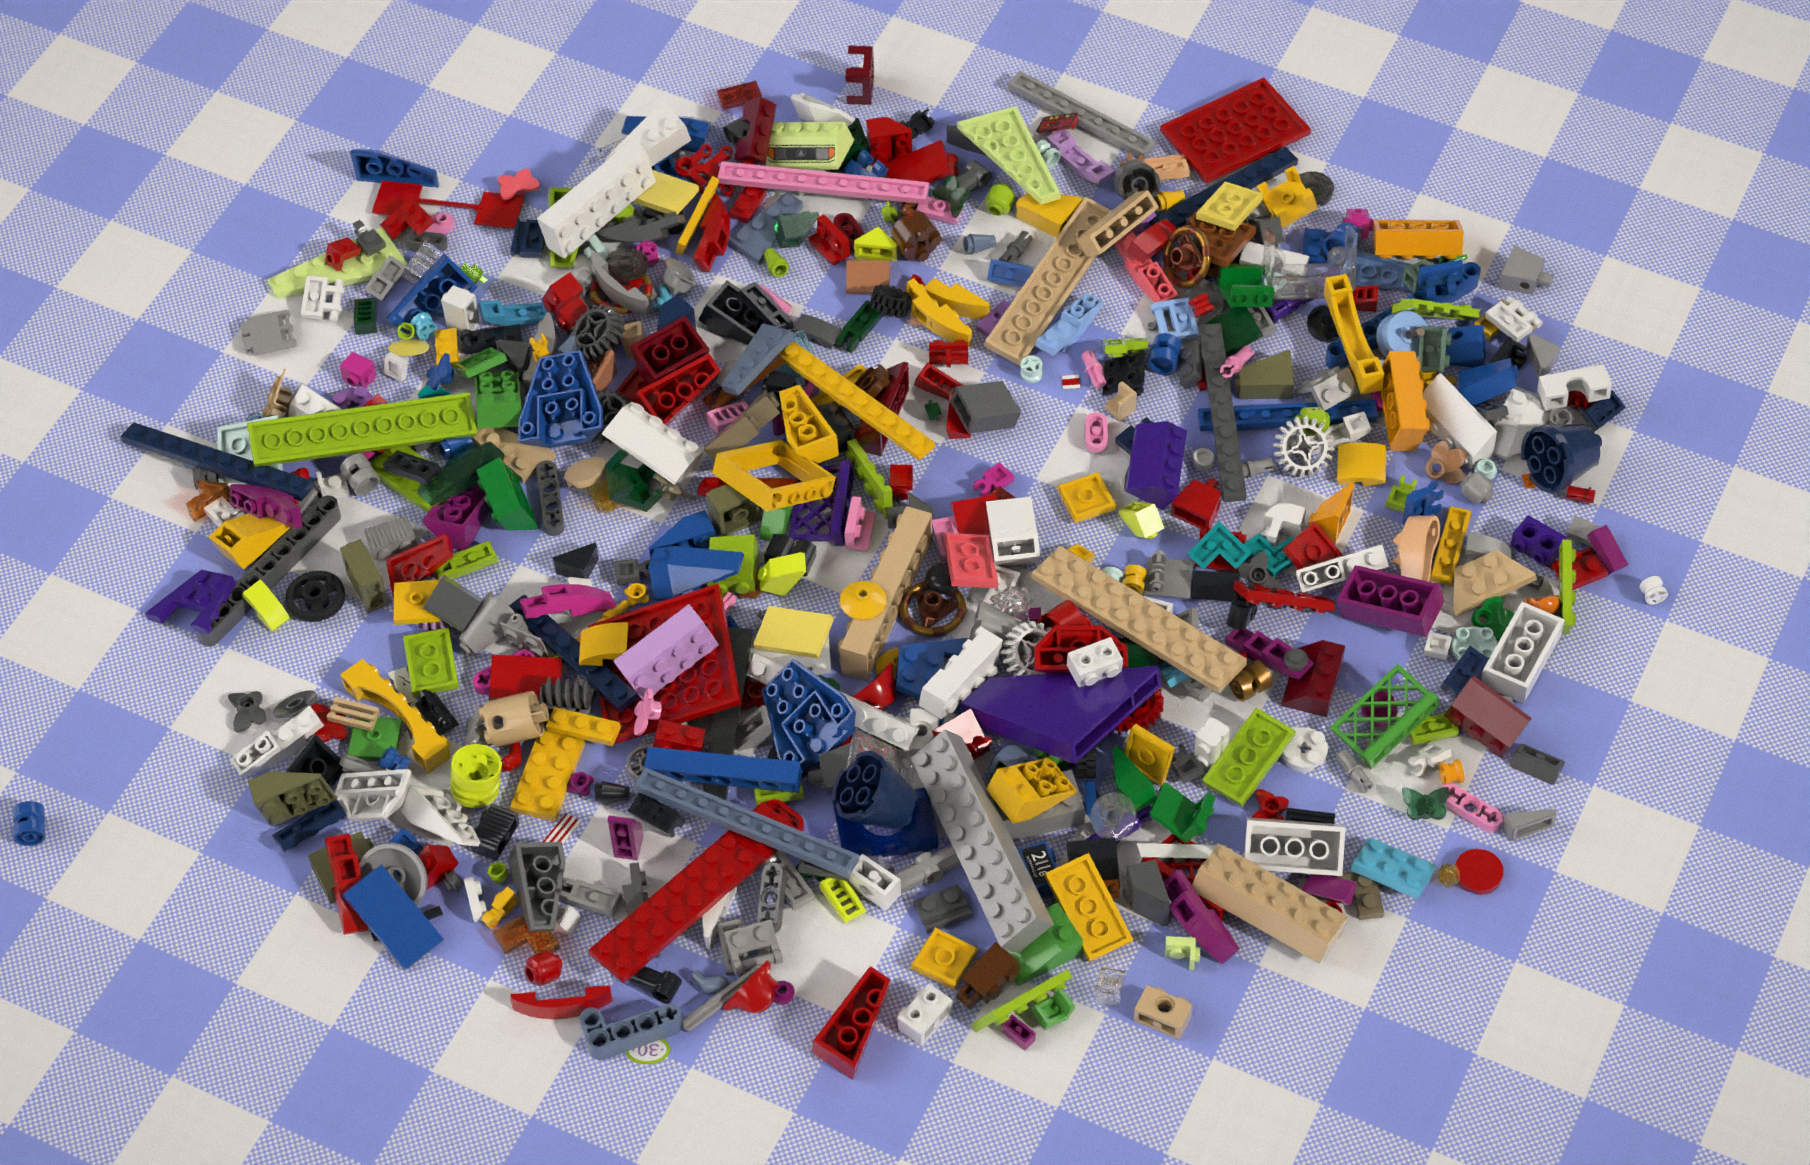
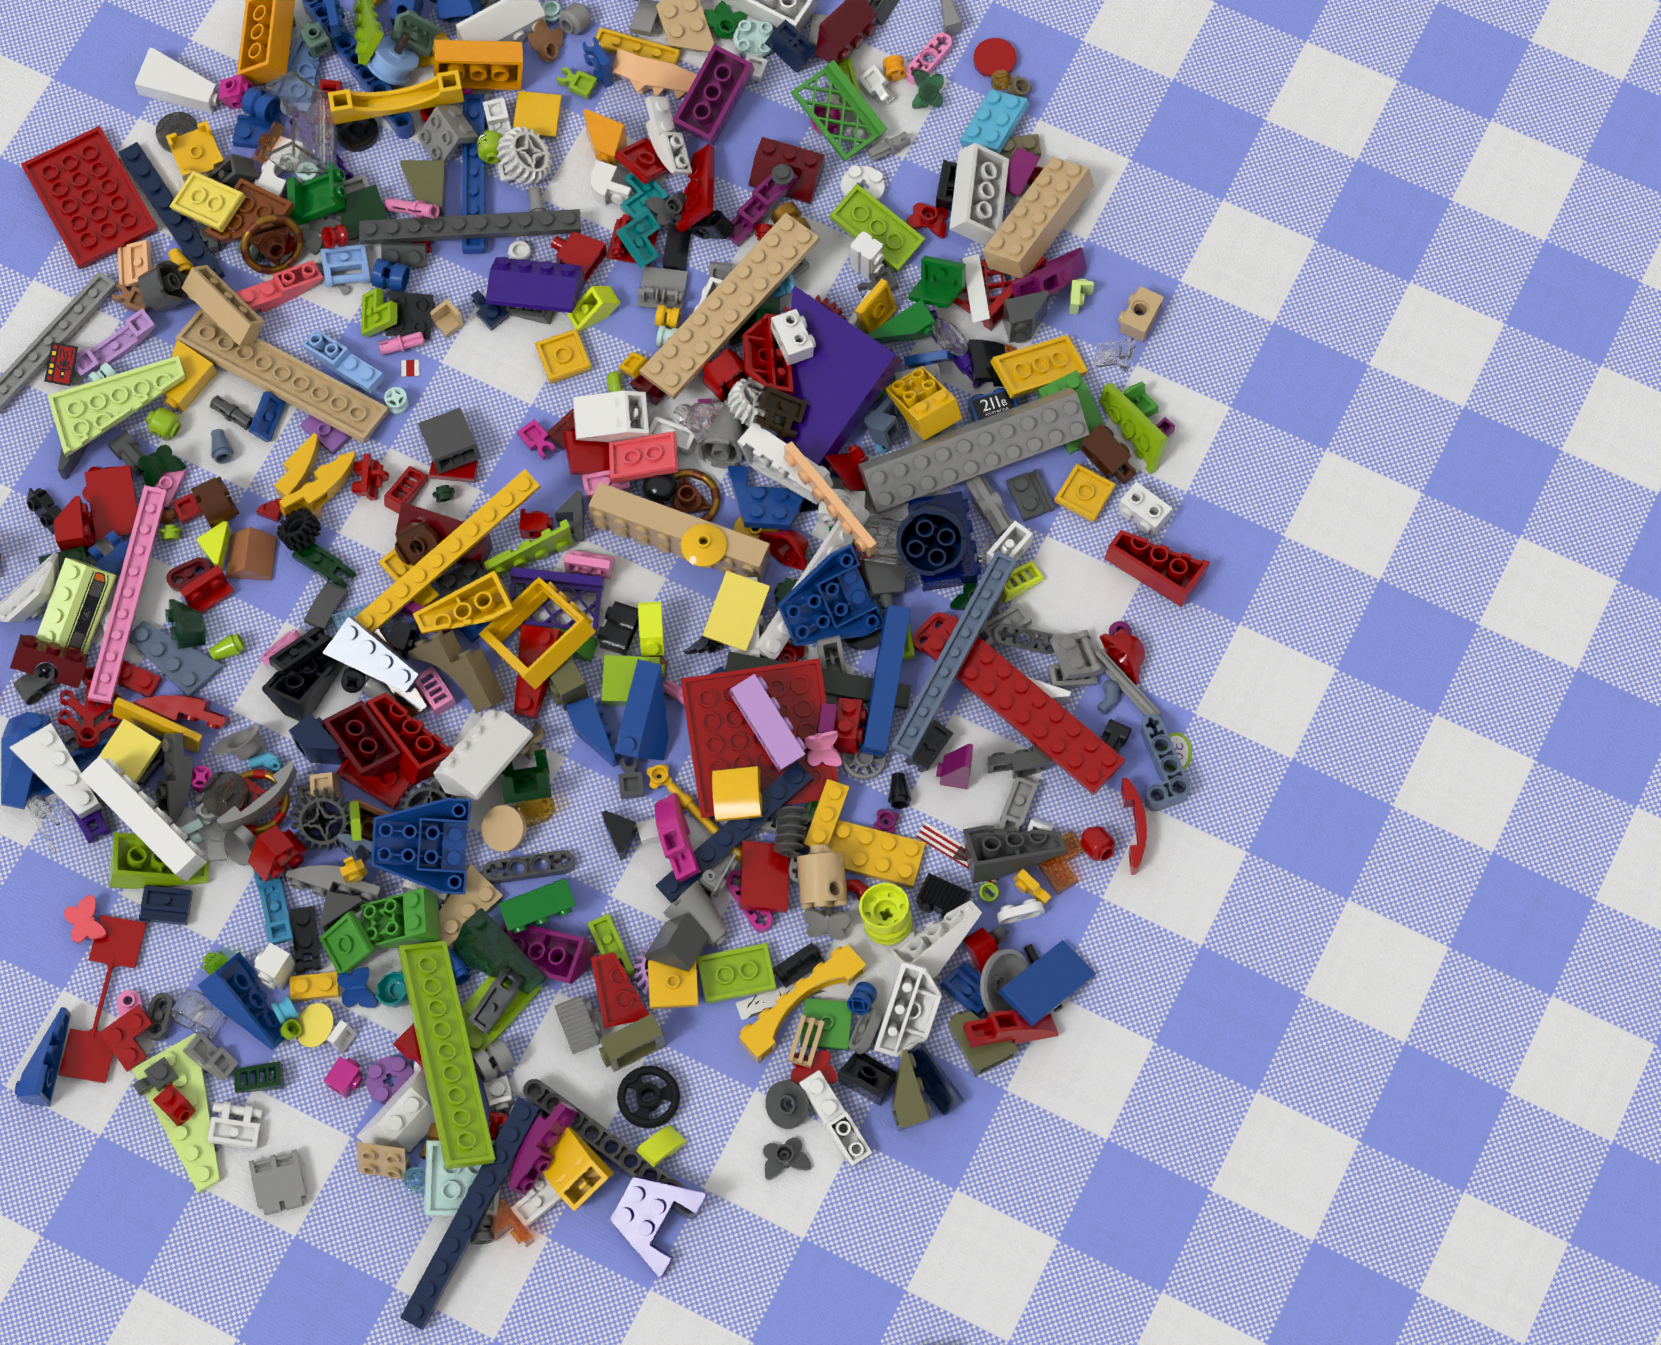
camera: 90 degrees left, 15 degrees up
(590, 347) = (355, 821): none -> lime tile
(677, 712) = (827, 718): none -> magenta piece
(735, 349) = (352, 675): none -> black wheel
(909, 698) = (835, 506): none -> light nougat plate
(1019, 663) = (783, 406): none -> dark brown plate
(1054, 541) = (613, 381): none -> lime arm
(1096, 434) = (482, 343): bright pink plate -> none
(1151, 241) = (245, 274): red slope -> none
(1301, 247) = (267, 141): none -> clear orange plate
(1365, 177) = (174, 83): none -> white slope
(1438, 887) = (1019, 82): none -> dark tan plate

